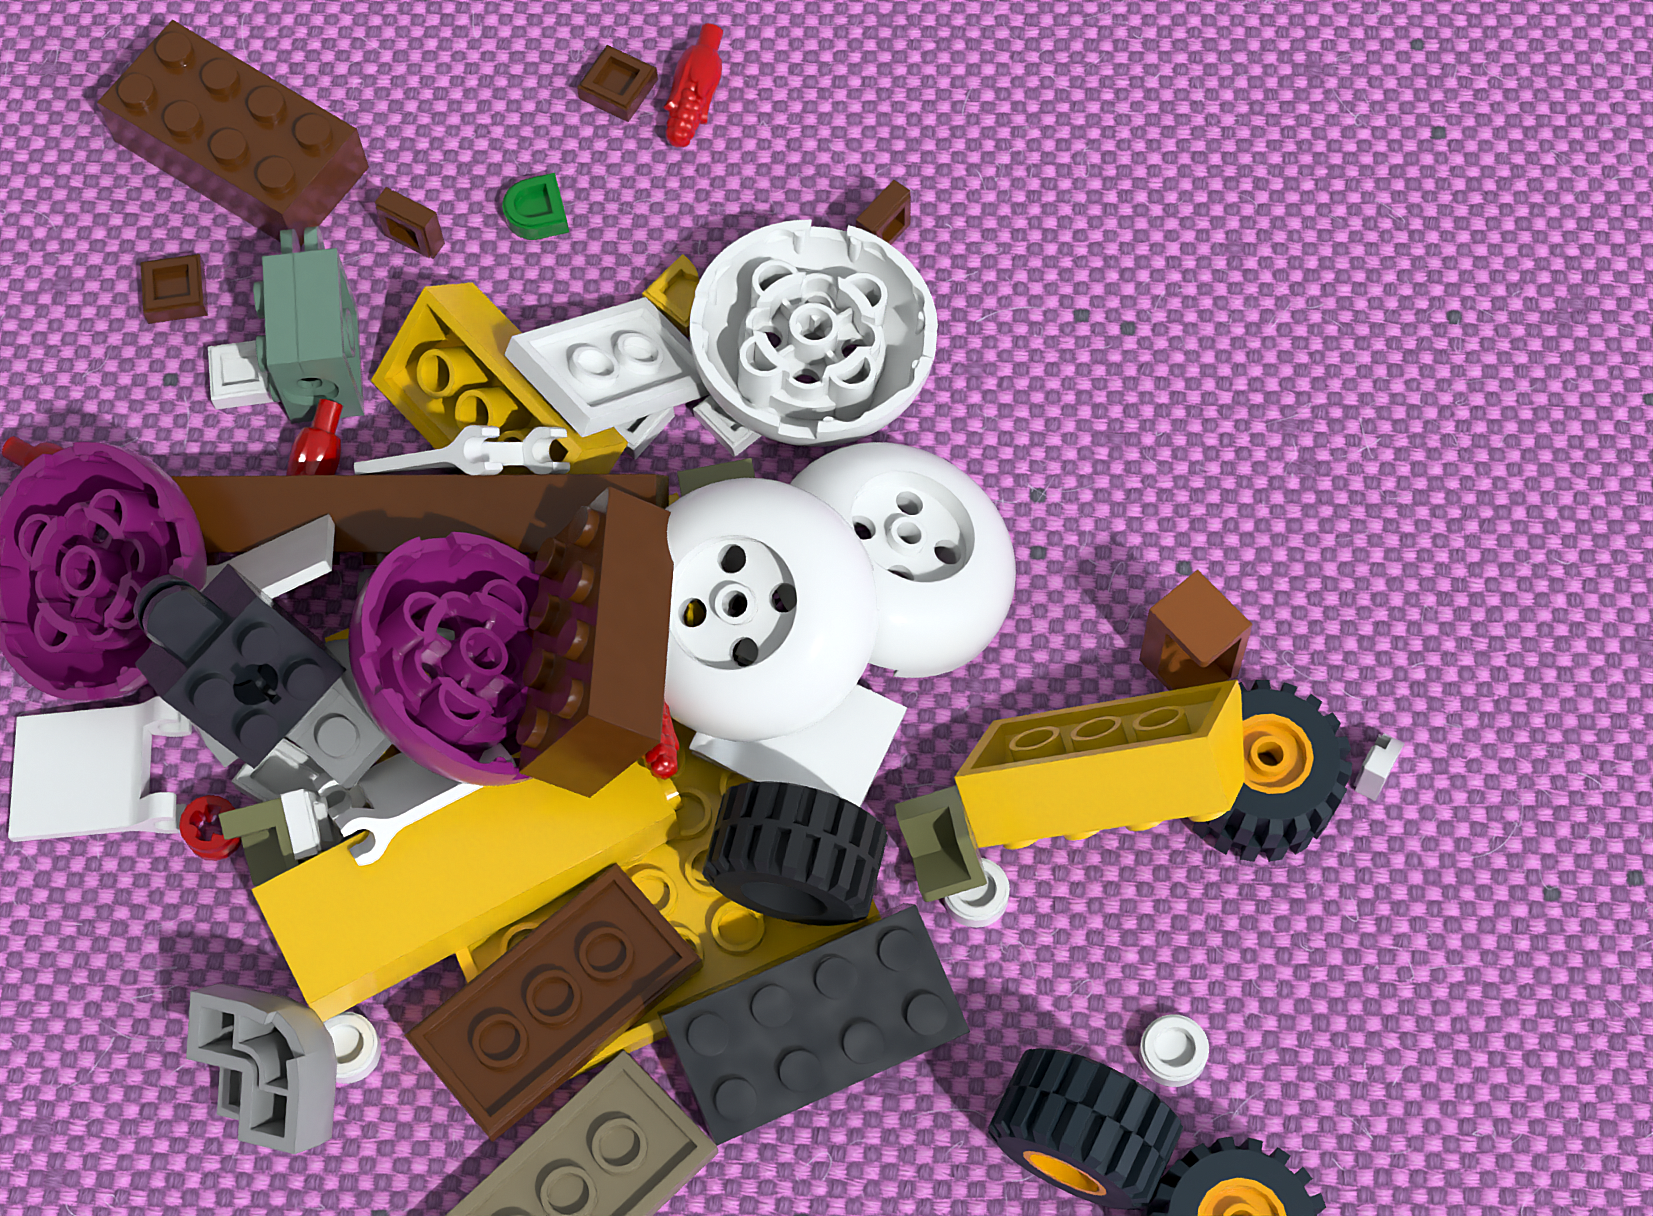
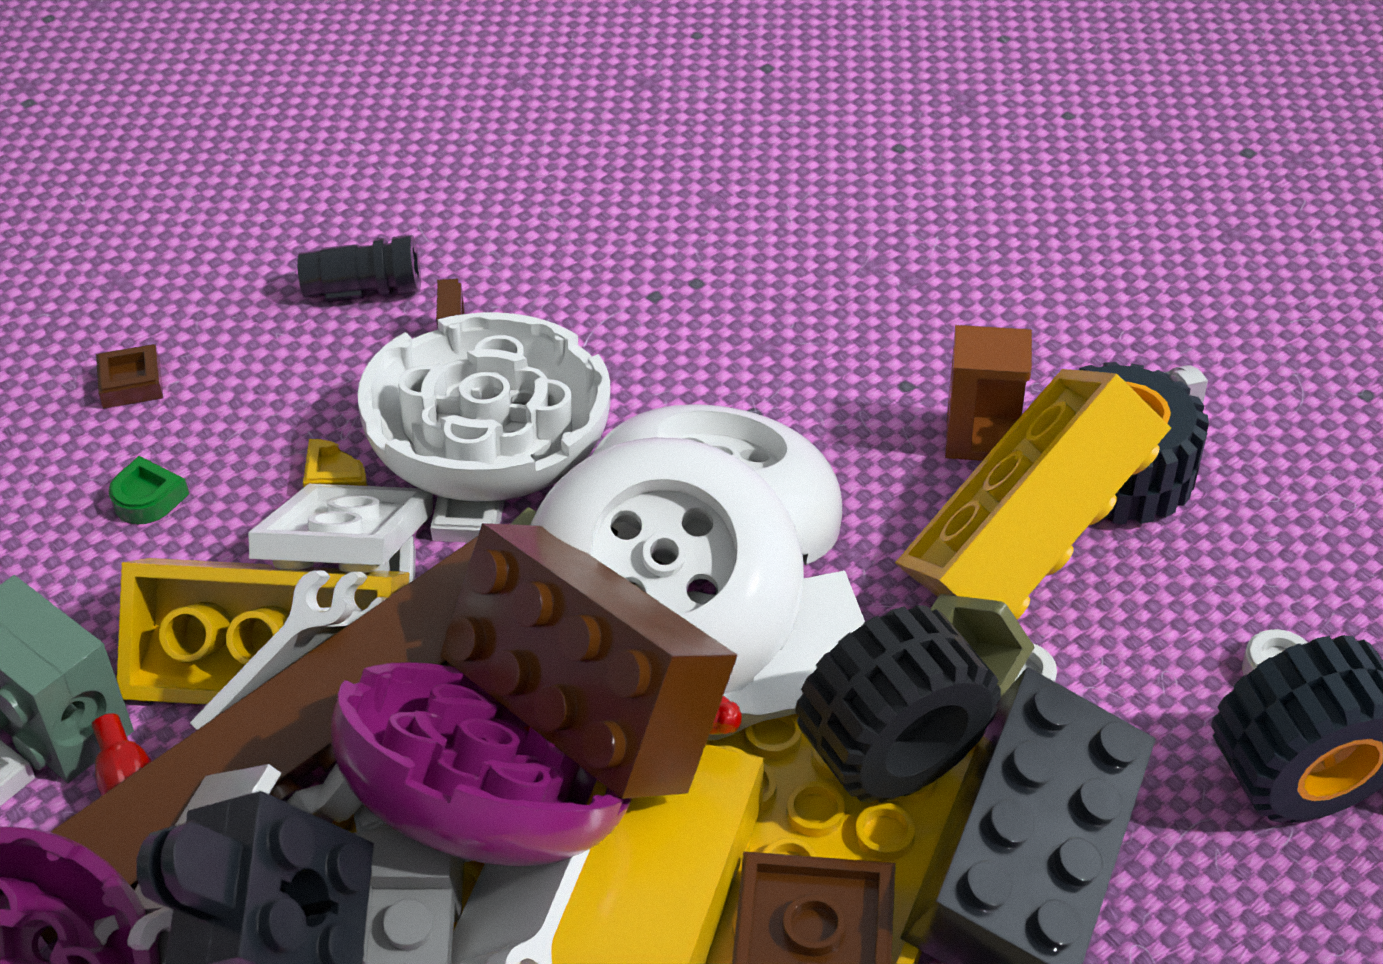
camera: 45 degrees left, 20 degrees down
(409, 223) = (43, 559): reddish brown tile -> none
(694, 86) = (200, 337): red piece -> none
(863, 108) = (352, 269): none -> black axle

